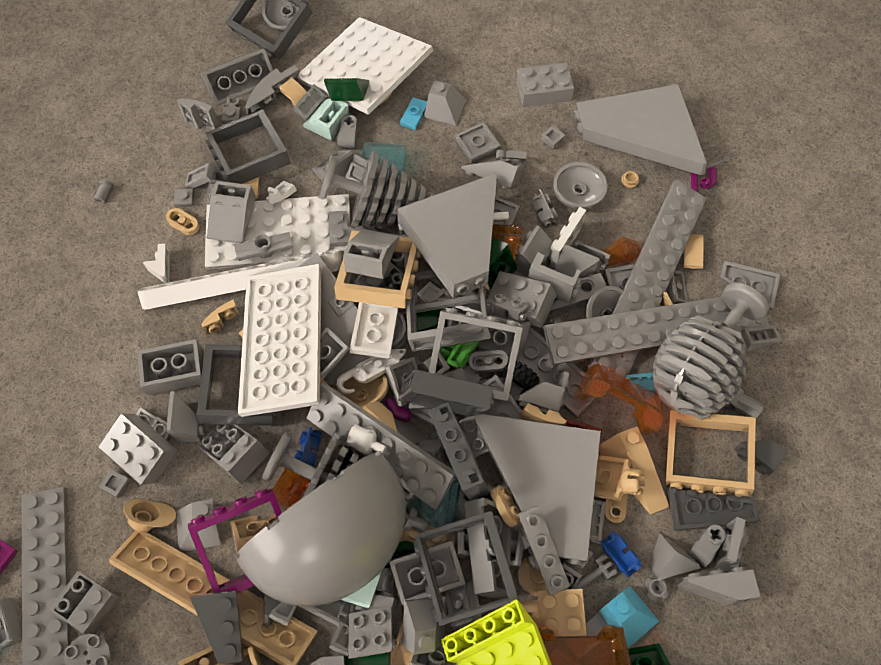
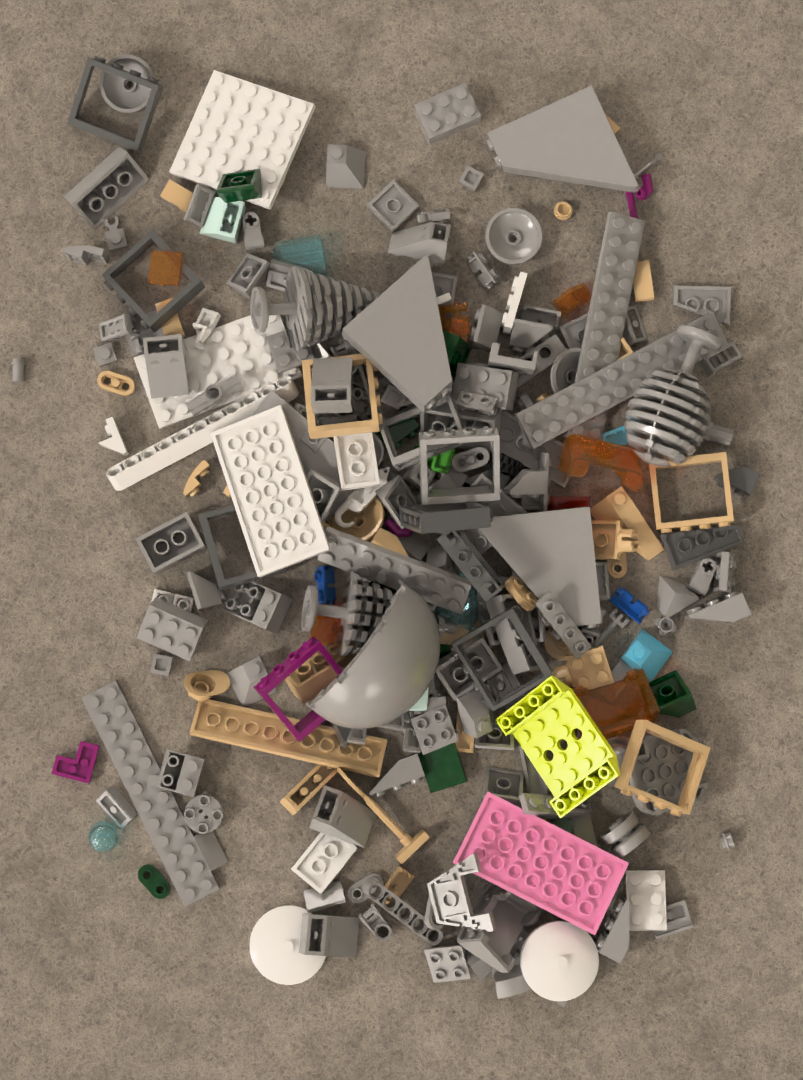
camera: 20 degrees left, 20 degrees up
(221, 623) = (309, 757): dark grey wing -> none
(260, 136) = (165, 268): none -> clear orange piece
(265, 91) = (145, 204): light grey slope -> none
(364, 440) = (383, 572): white piece -> none
(413, 113) = (314, 185): medium azure plate -> none
(534, 414) = (539, 504): tan slope -> none

